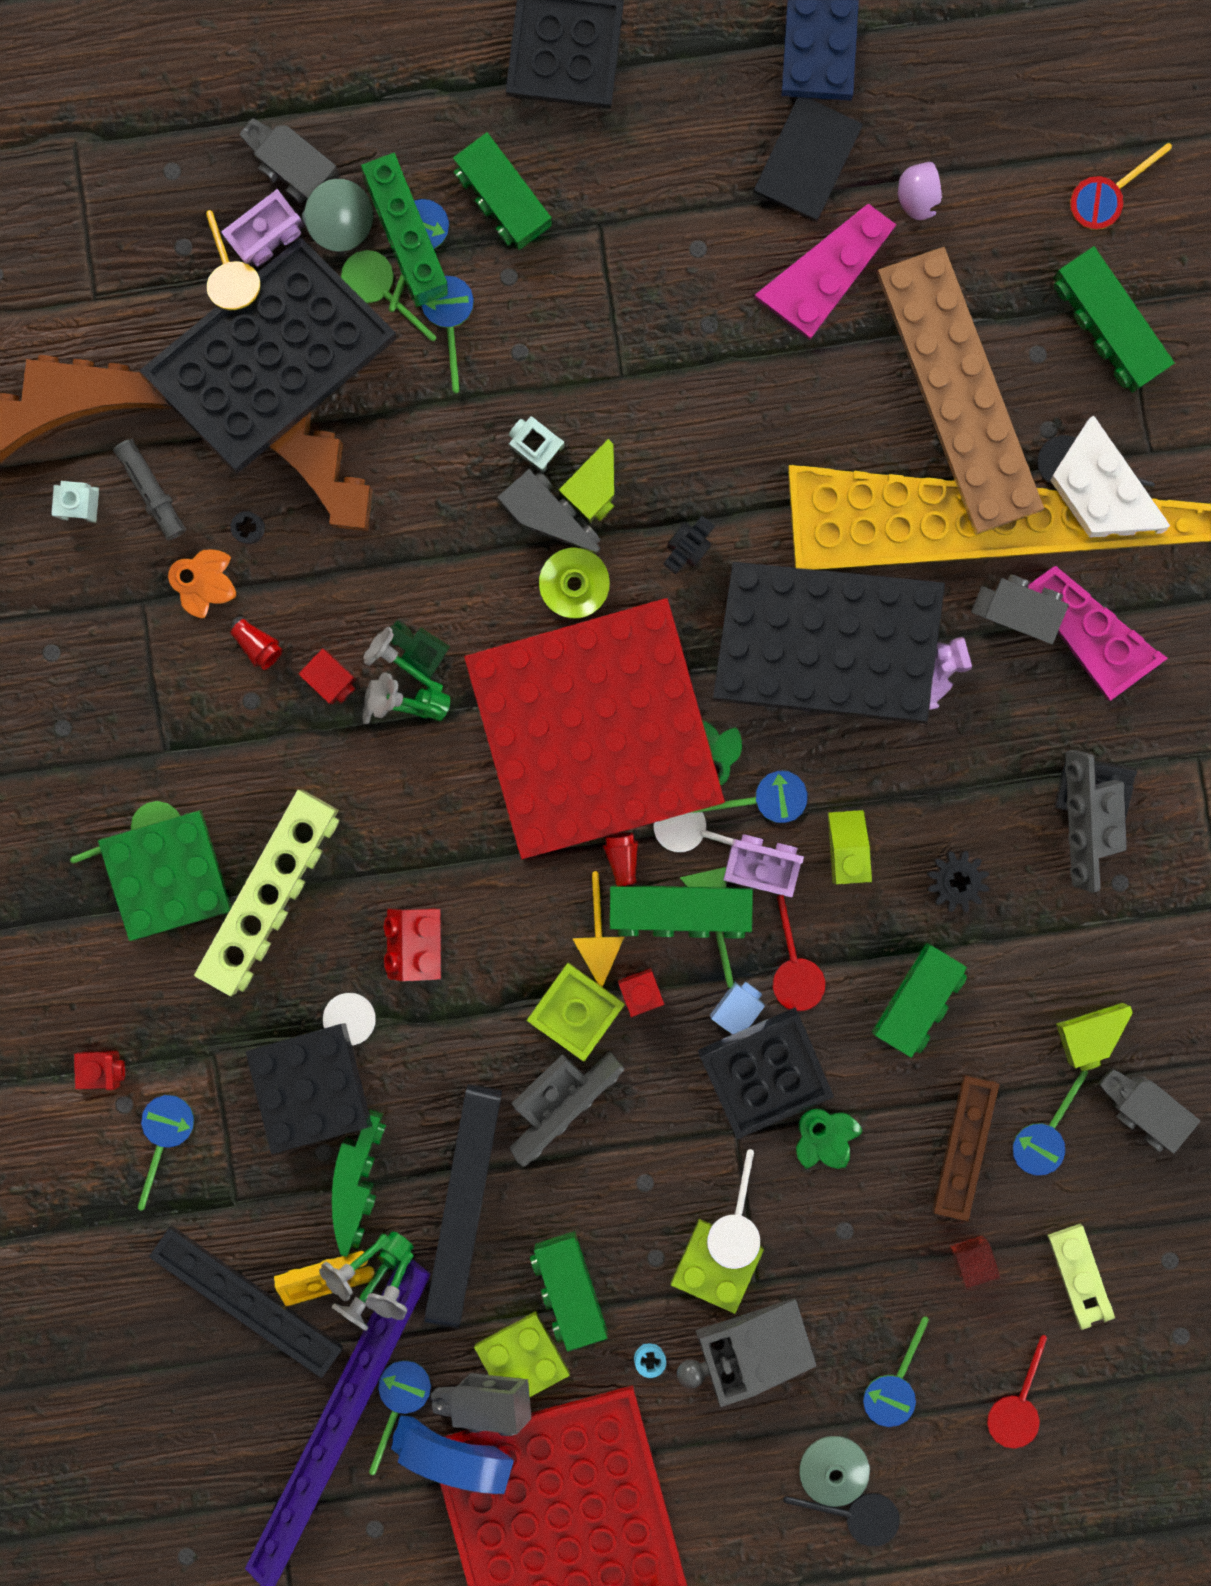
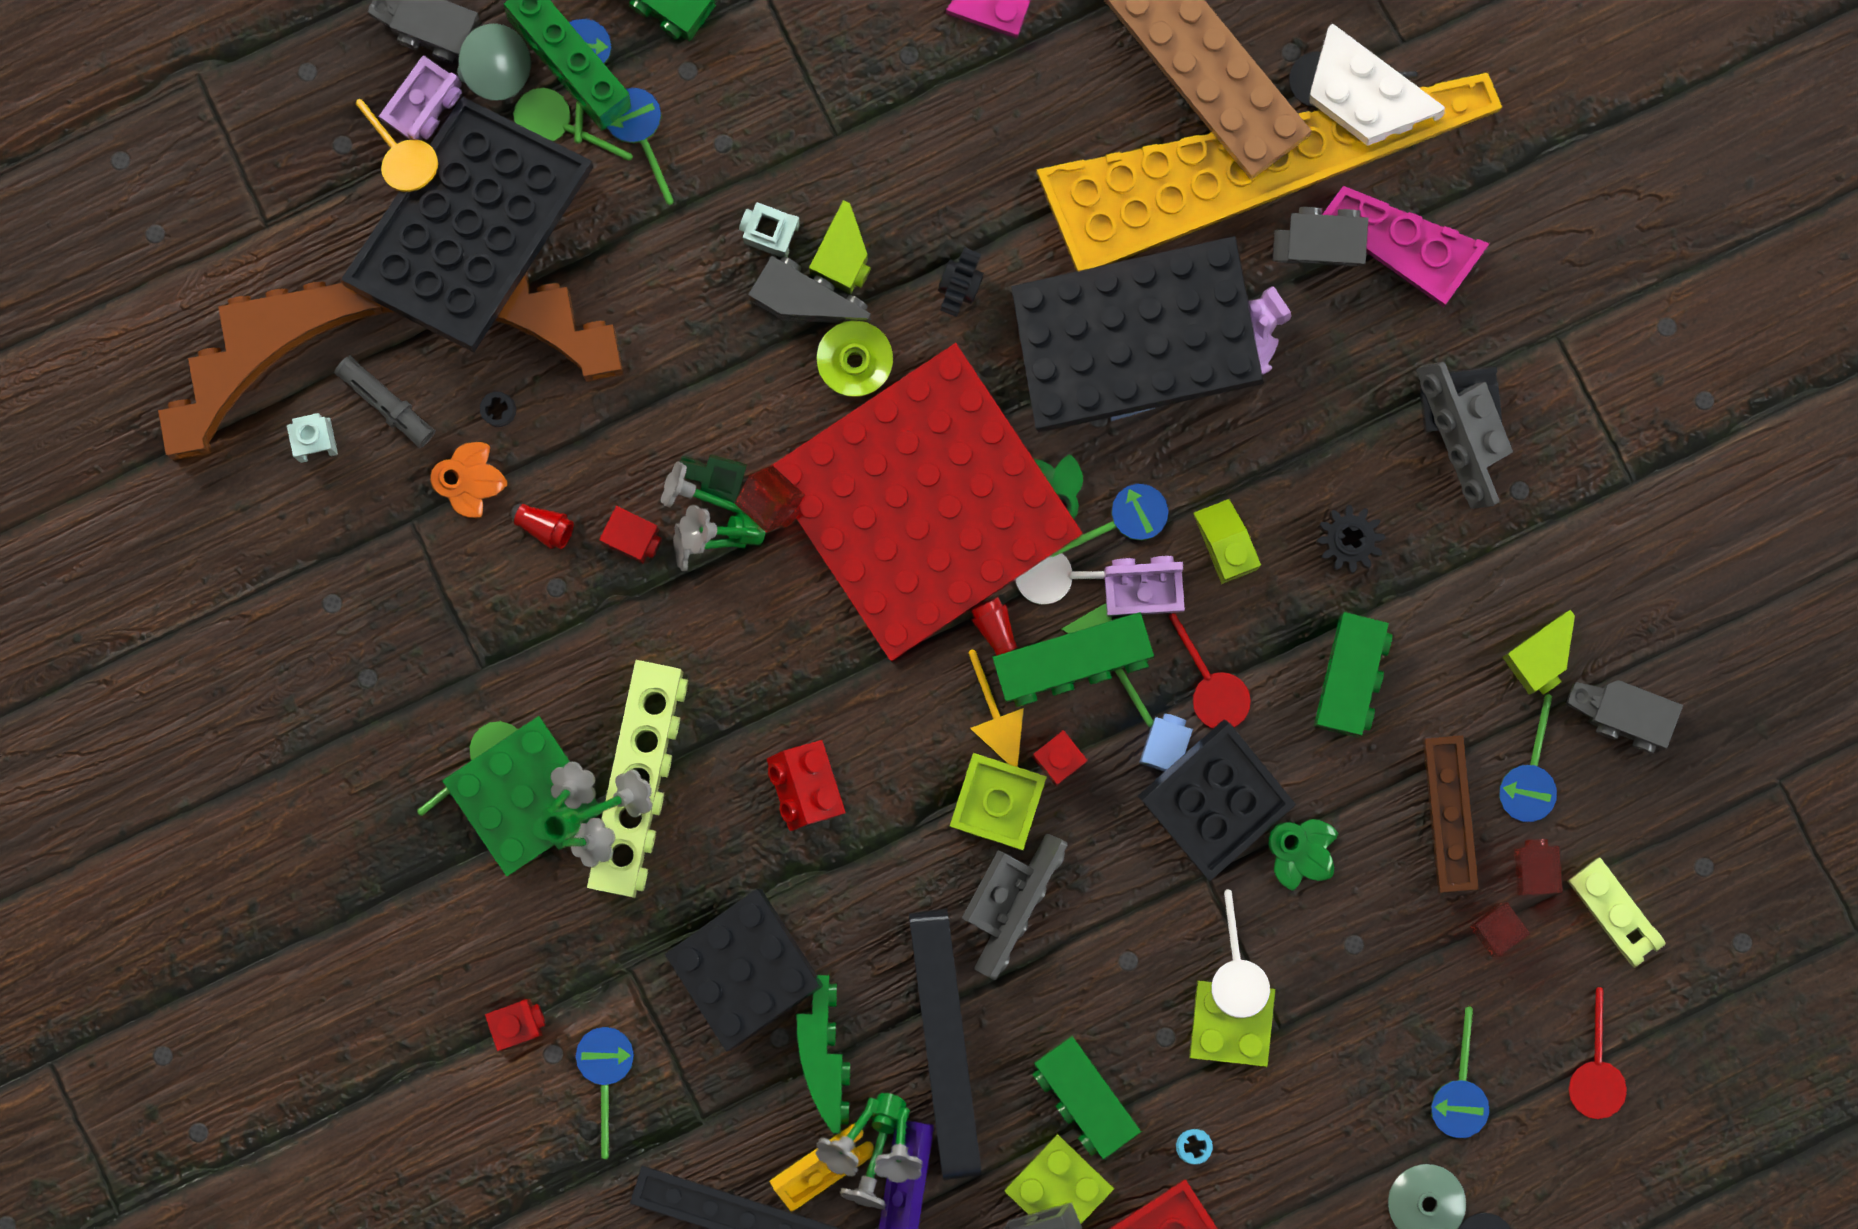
camera: 20 degrees left, 5 degrees down
(208, 931) = (591, 839): none -> light grey plant
(355, 1012) = (764, 875): white piece -> none
(460, 685) = (770, 499): none -> clear red brick
(758, 1348) = (1299, 1096): dark grey slope -> none
(1026, 1219) = (1538, 868): none -> clear red brick

